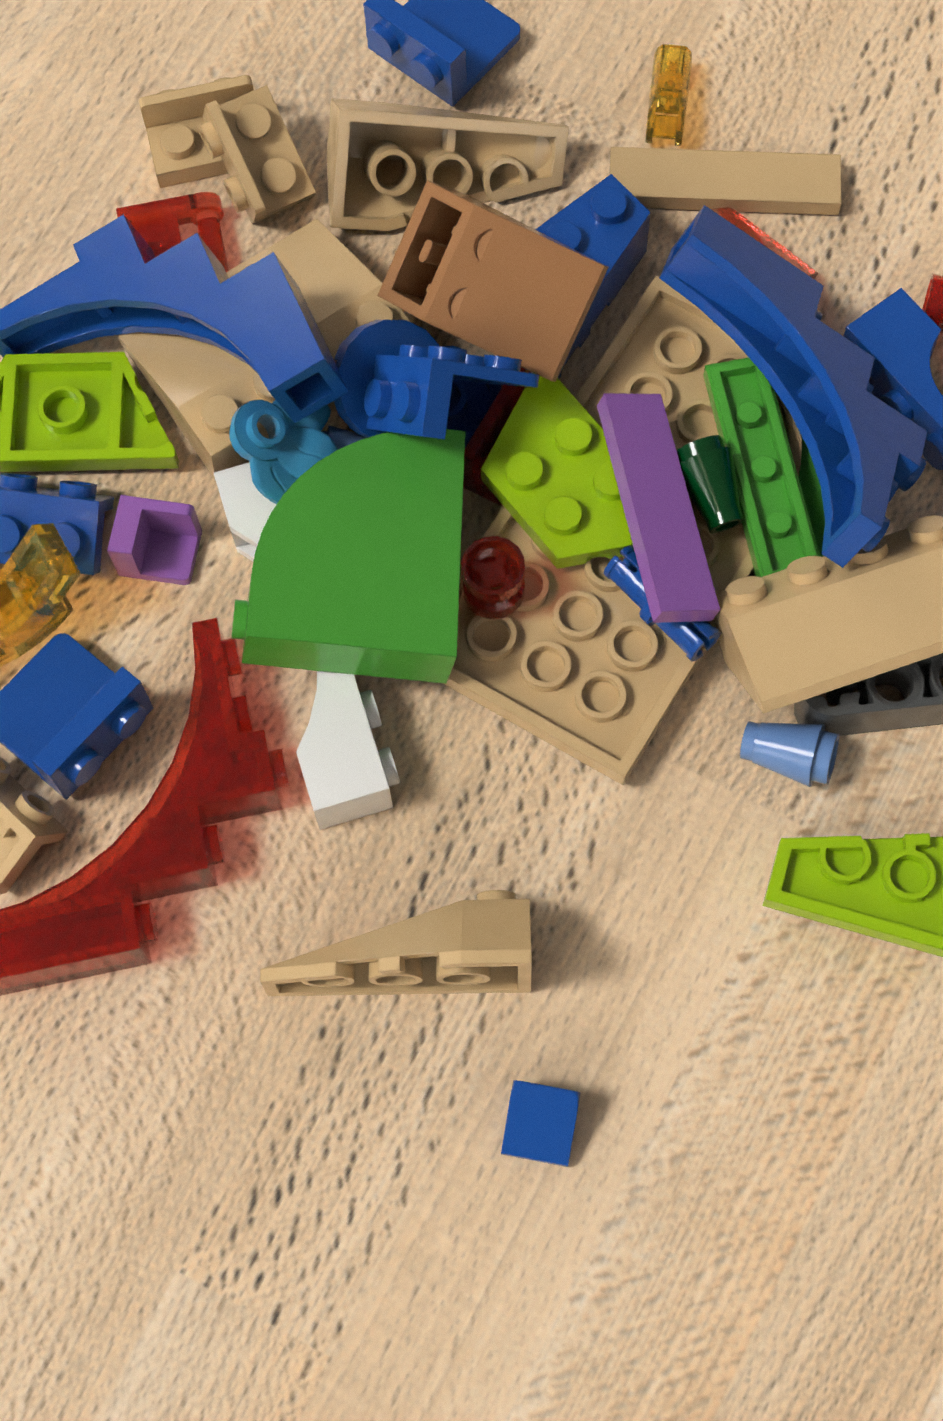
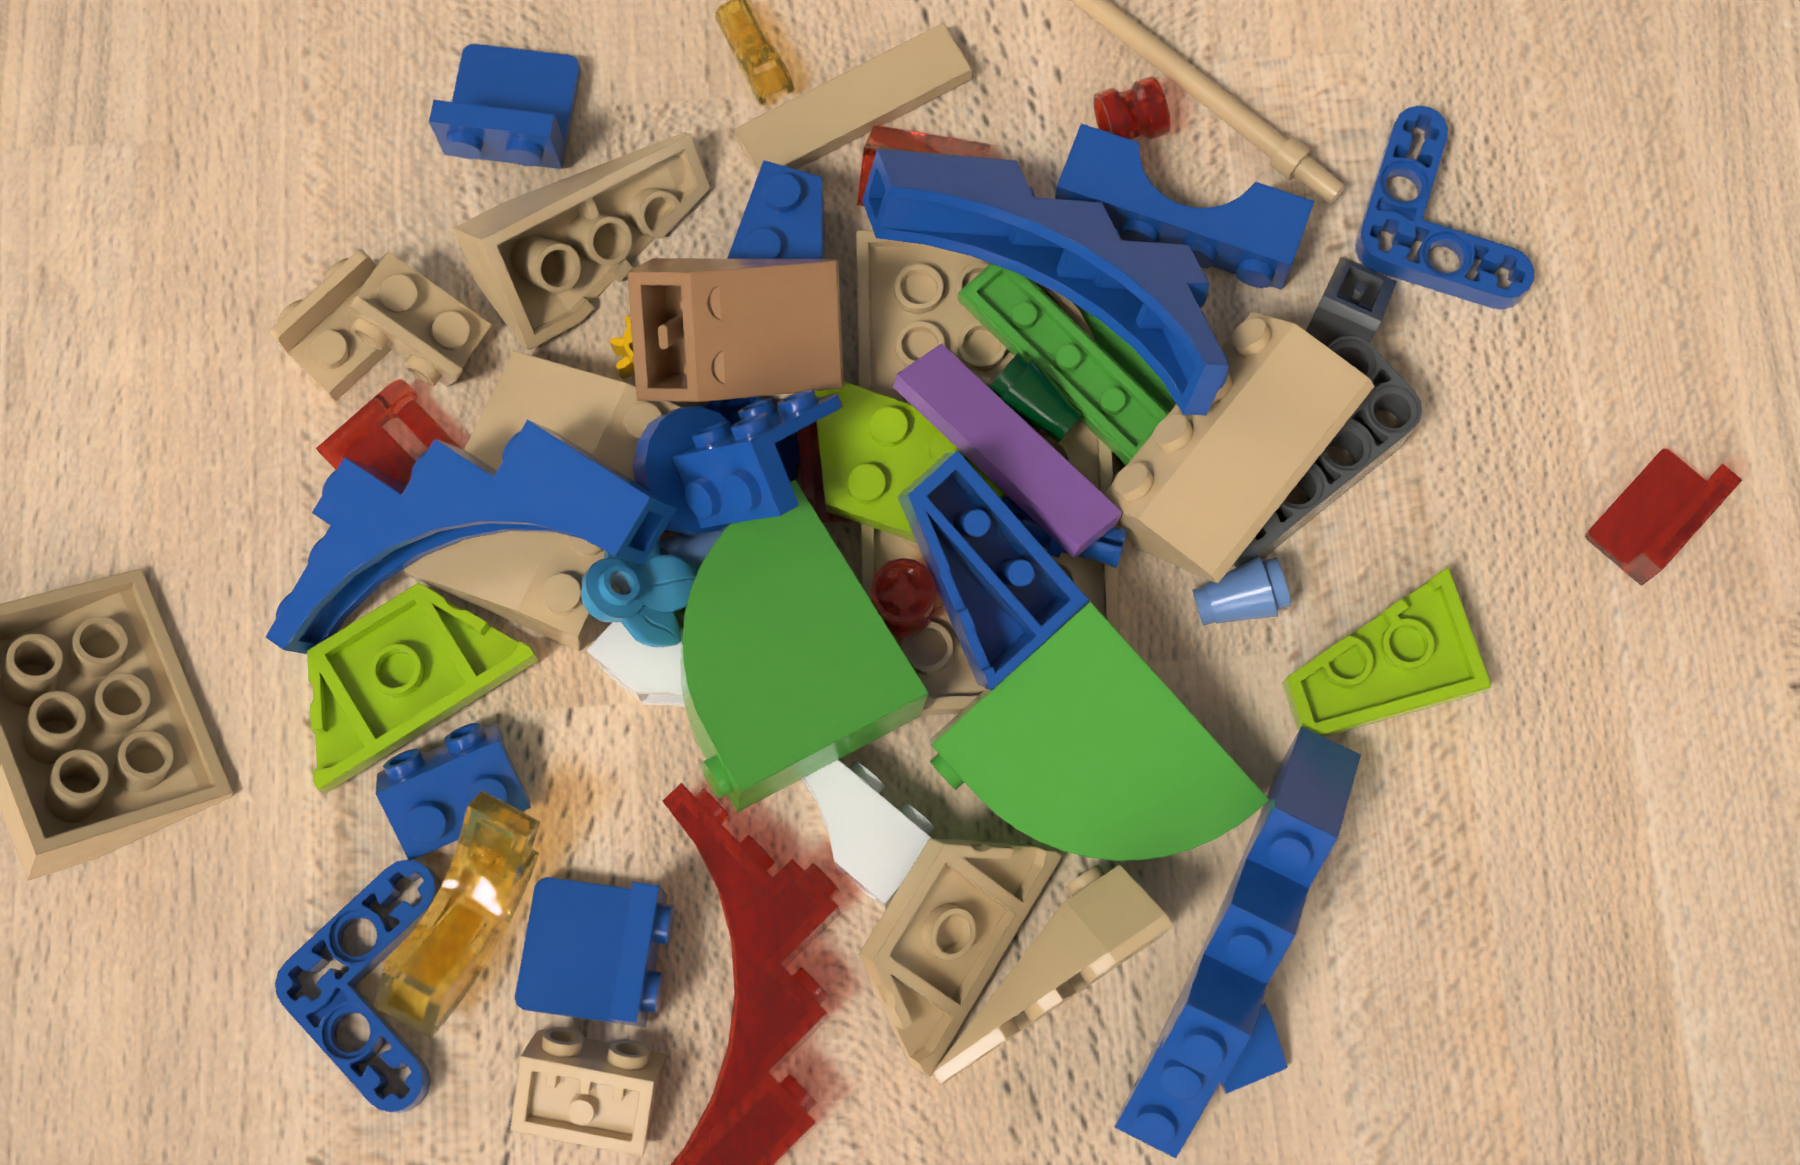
camera: 35 degrees left, 5 degrees up
(155, 540) = (567, 742): medium lavender panel -> none
(353, 870) = (949, 935): none -> tan wing
(570, 793) = (1095, 752): none -> bright green brick
(574, 587) = (987, 569): none -> blue wedge
(587, 1019) = (1244, 944): none -> blue arch

